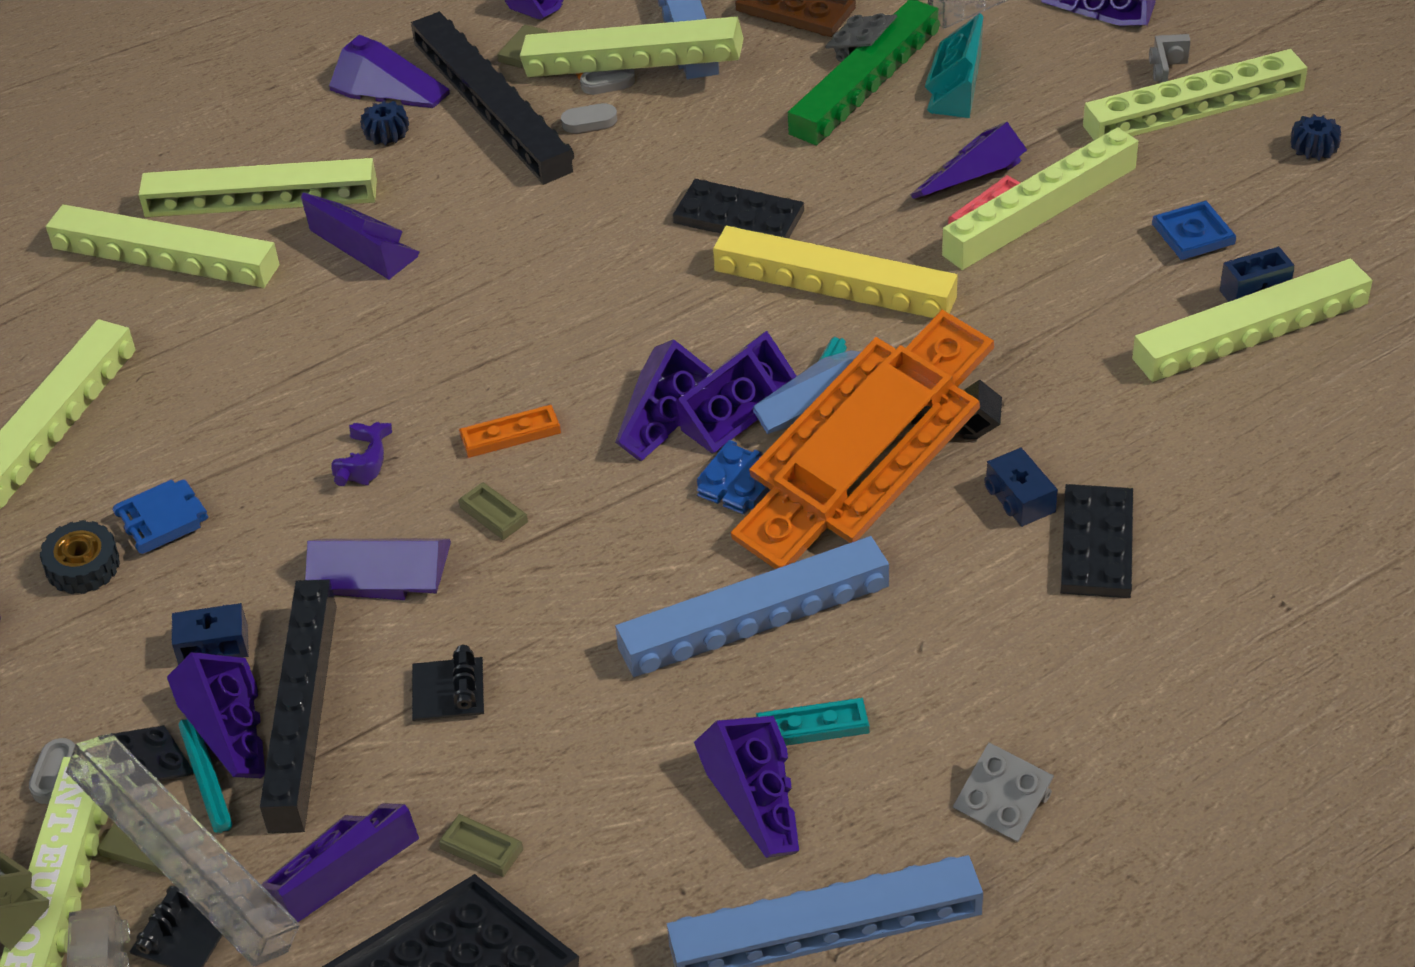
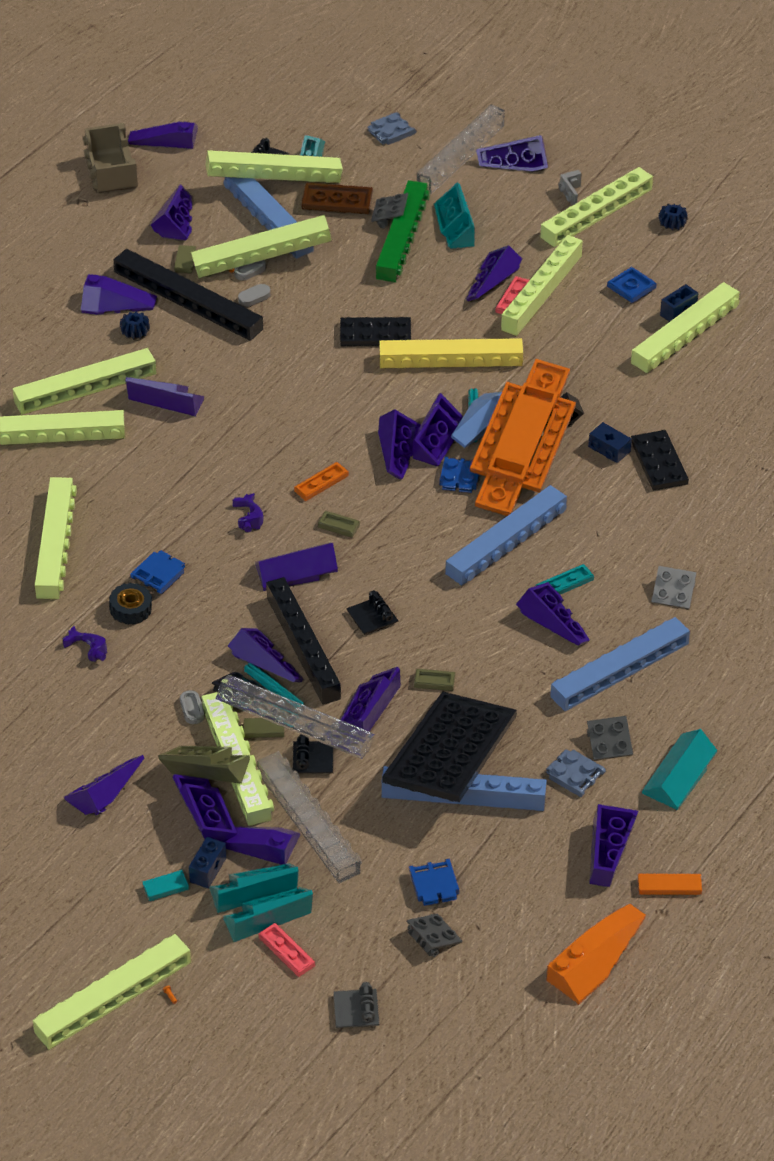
camera: 25 degrees left, 0 degrees up
(210, 631) = (229, 621): dark blue brick -> none

